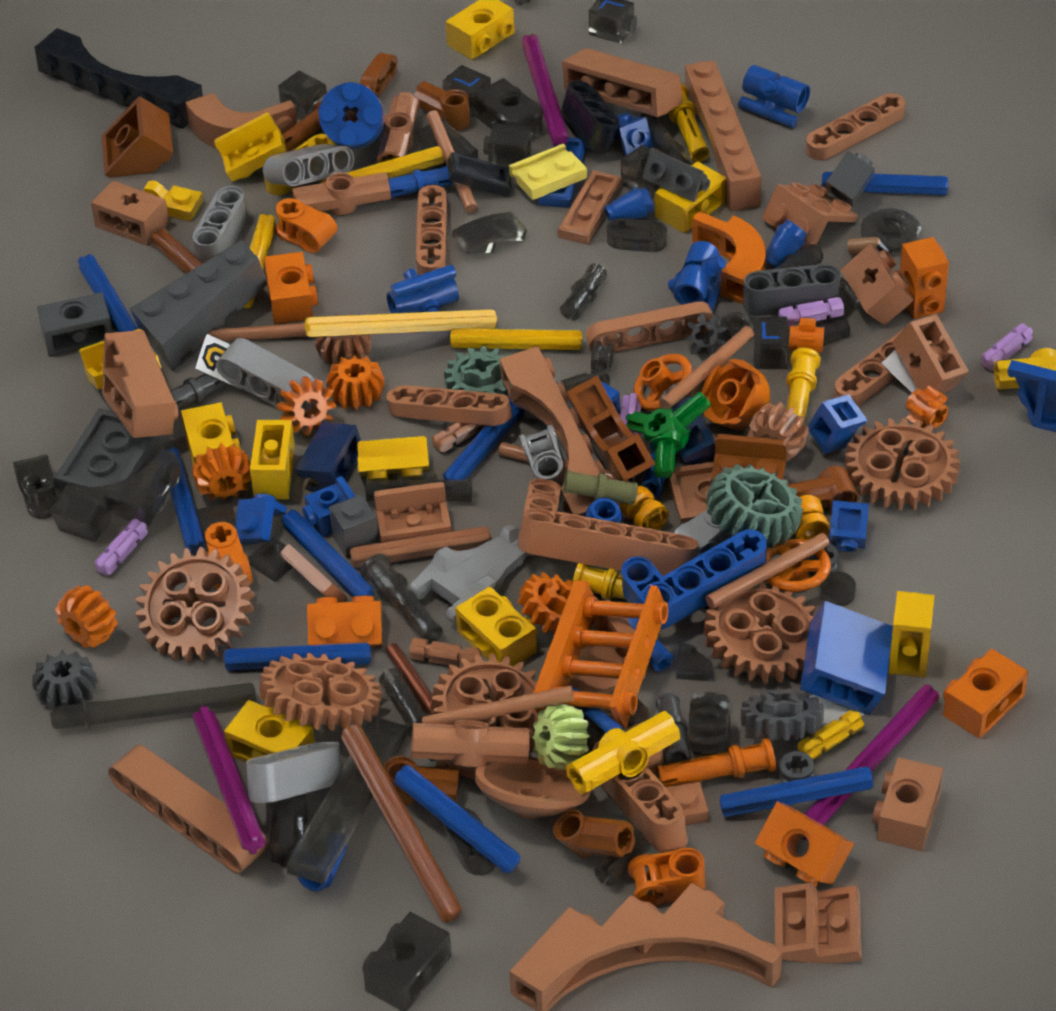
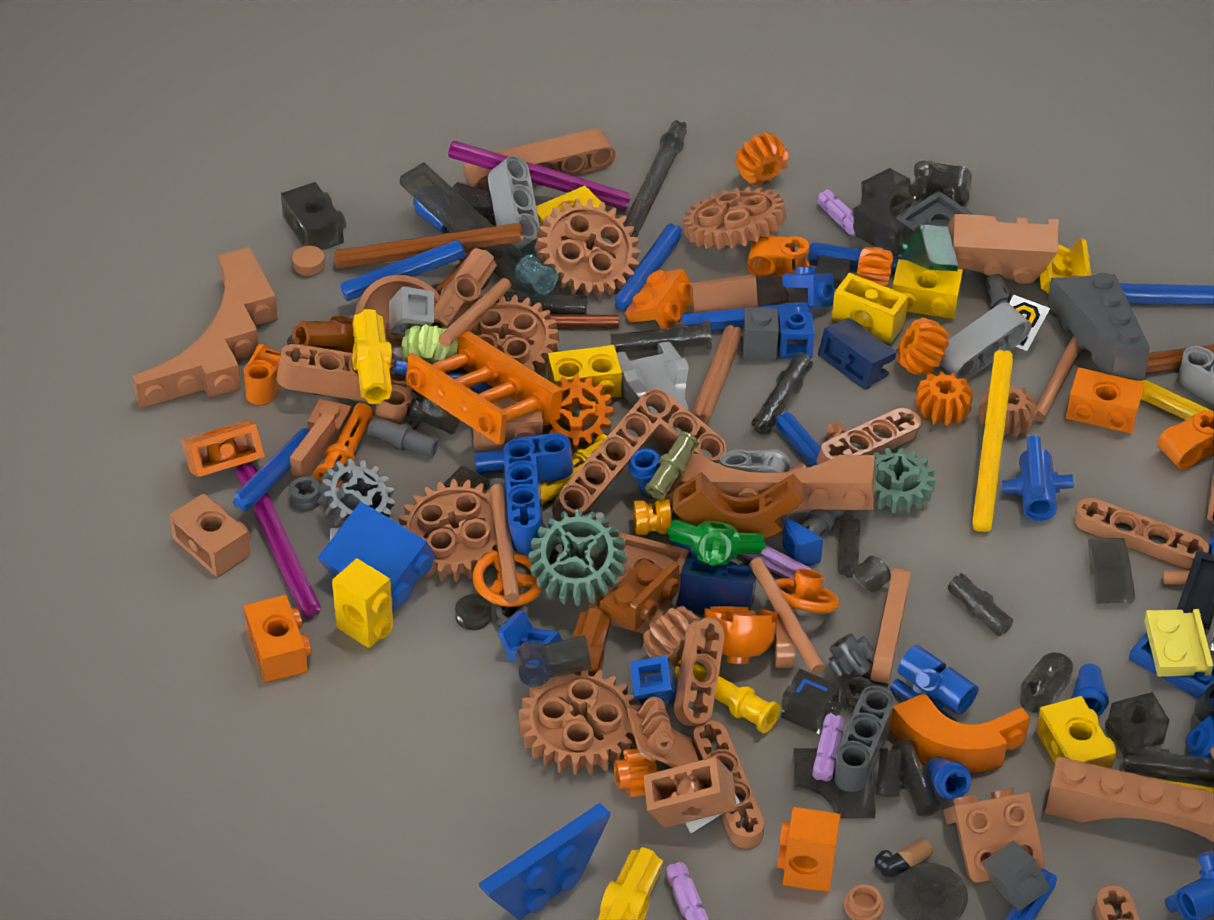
camera: 115 degrees right, 0 degrees up
(64, 680) = (711, 139): dark grey gear -> none
(74, 323) = (1136, 254): dark grey brick -> none
(182, 425) = (930, 248): none -> clear green slope
(392, 708) = (536, 274): none -> clear light blue bush
(393, 456) = (823, 383): yellow bracket -> none
(411, 511) = (749, 375): nougat bracket -> none
(441, 652) = (594, 339): nougat axle -> none
(469, 941) = (308, 260): none -> nougat tile
(516, 339) = (941, 531): yellow axle -> none
(539, 750) = (410, 308): none -> light grey brick
(588, 207) = (1117, 668): nougat tile -> none
(675, 175) = (1074, 714): dark grey hinge -> none
(709, 724) = (379, 444): clear smoke gear -> none
(739, 778) = (313, 446): none -> nougat tile
(801, 393) = (703, 701): none -> nougat beam
(806, 335) = (793, 726): orange gear -> none
(813, 520) = (558, 617): light orange wheel -> none
(818, 924) = (156, 440): nougat slope -> none
(831, 734) = (319, 526): yellow axle -> none
(877, 487) = (557, 660): none -> clear smoke piece
(878, 284) = (855, 812): nougat brick -> none
(886, 398) = (656, 738): none -> nougat hinge

